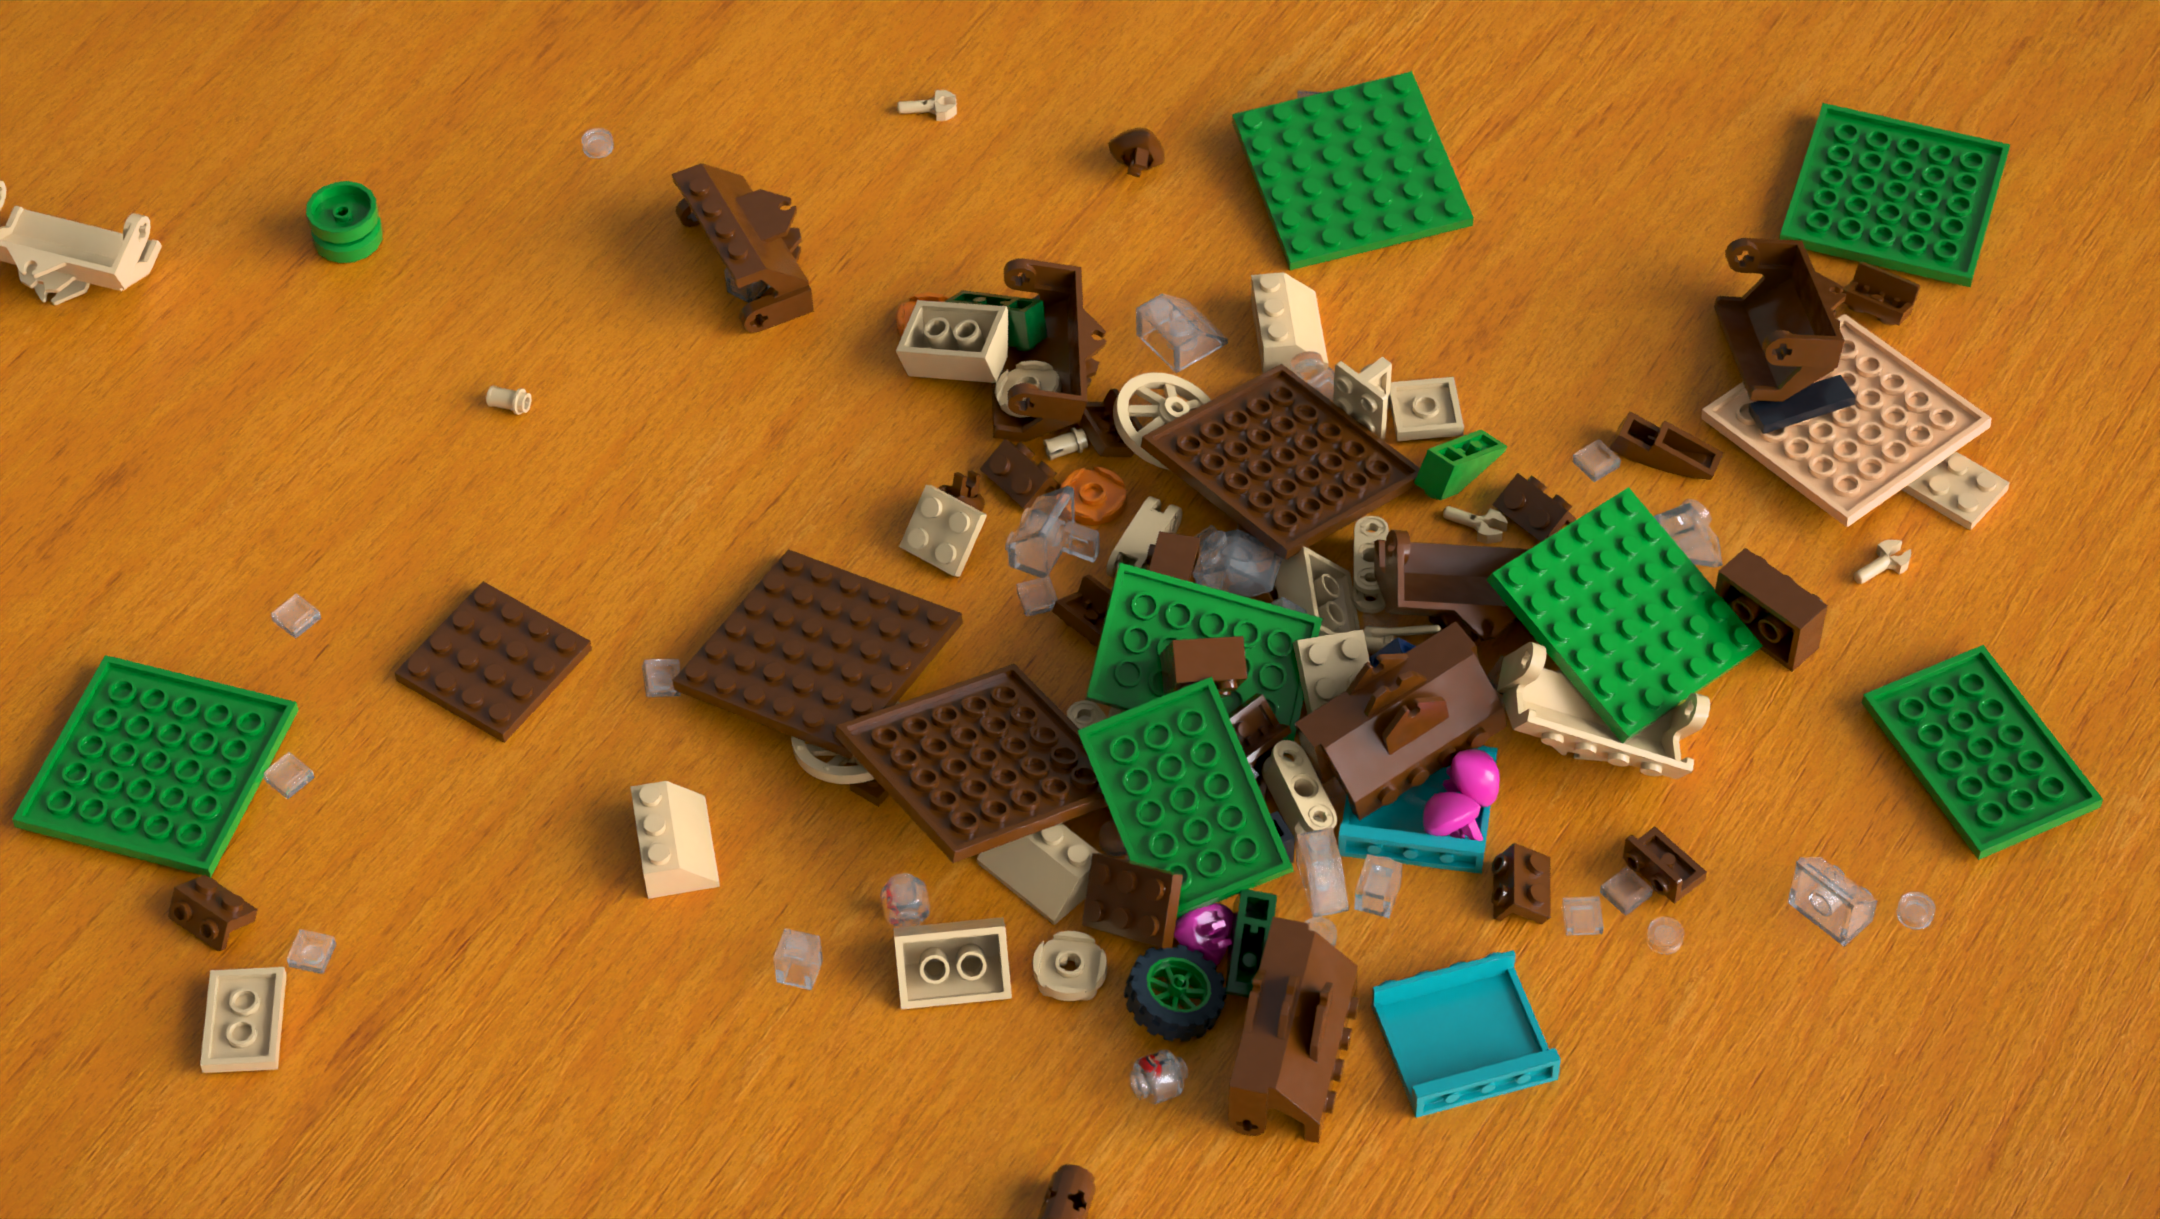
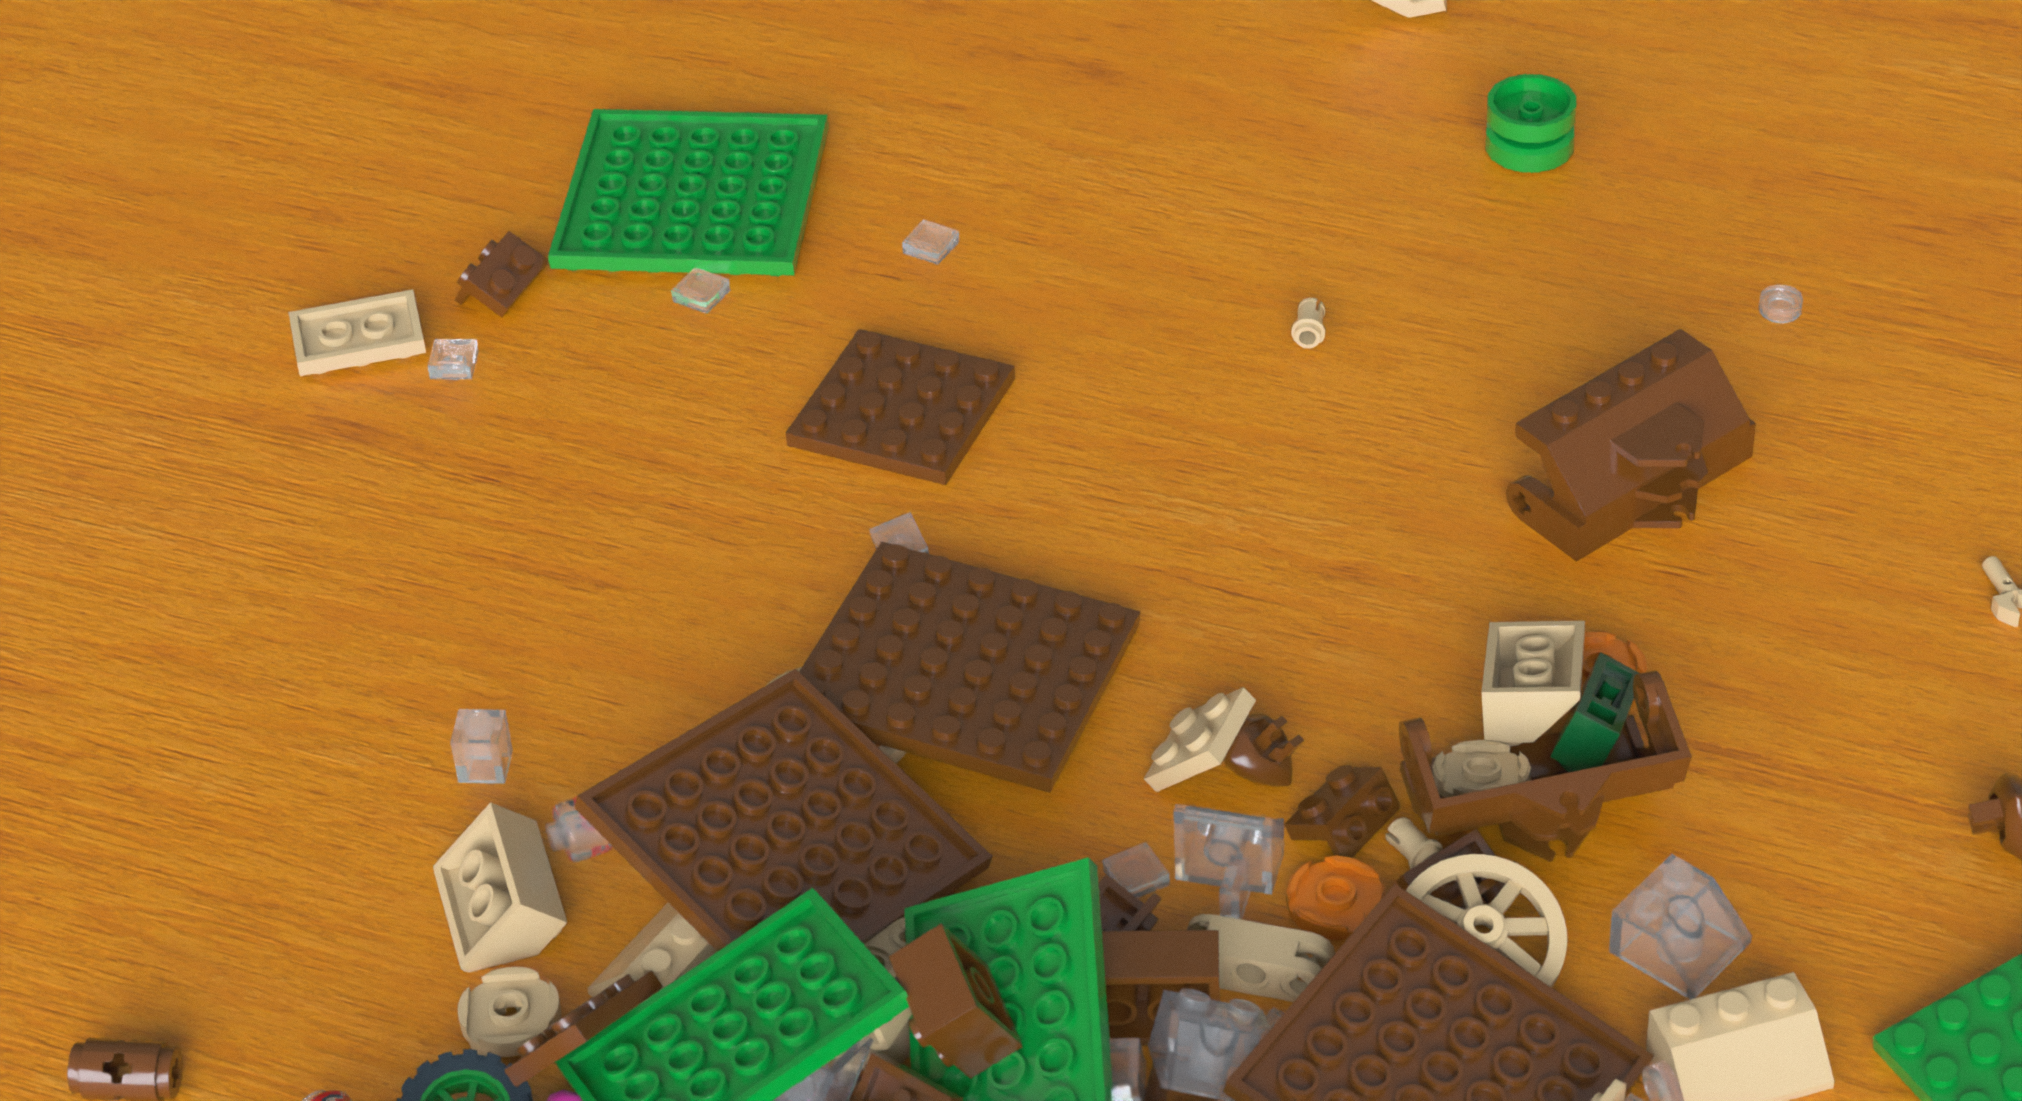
camera: 80 degrees right, 10 degrees down
(674, 839) = (651, 601): tan slope -> none

